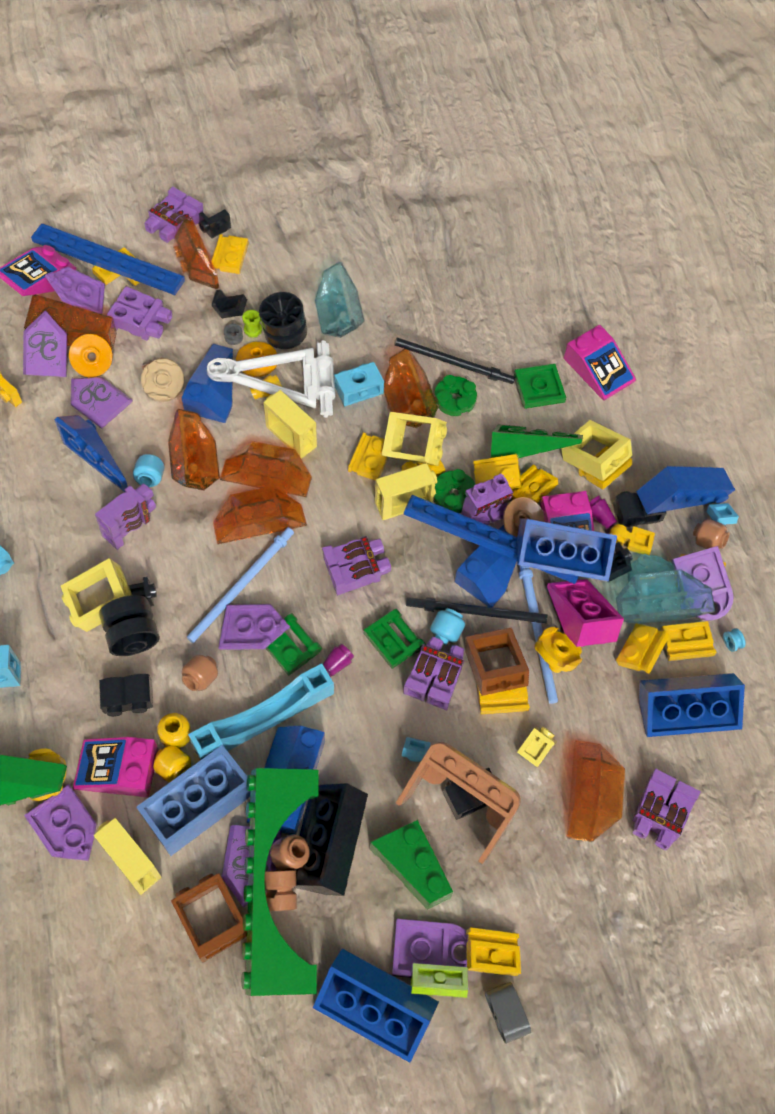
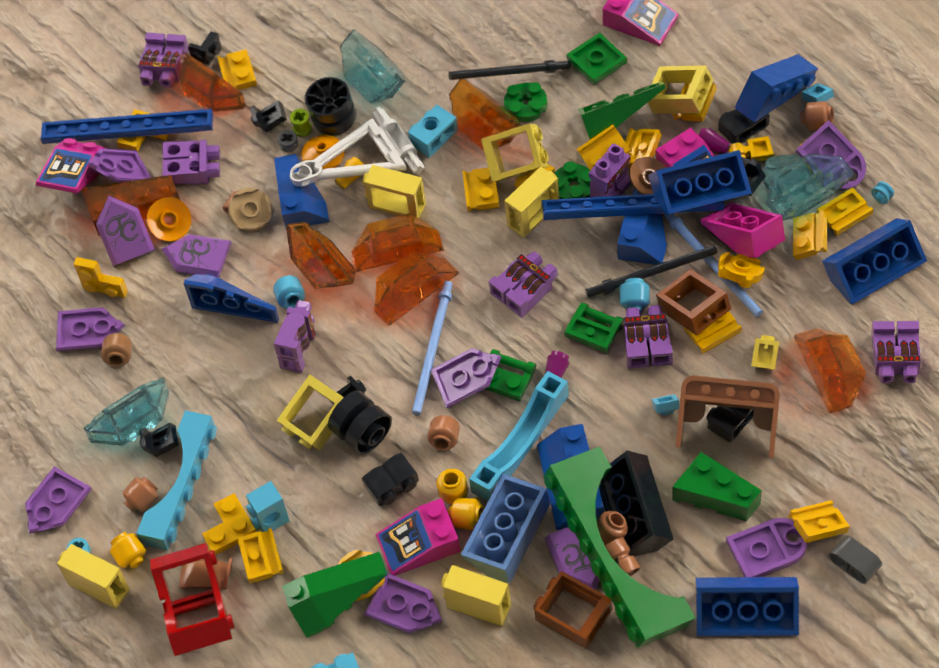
camera: 15 degrees left, 5 degrees down
(439, 980) = (788, 560): lime panel -> none

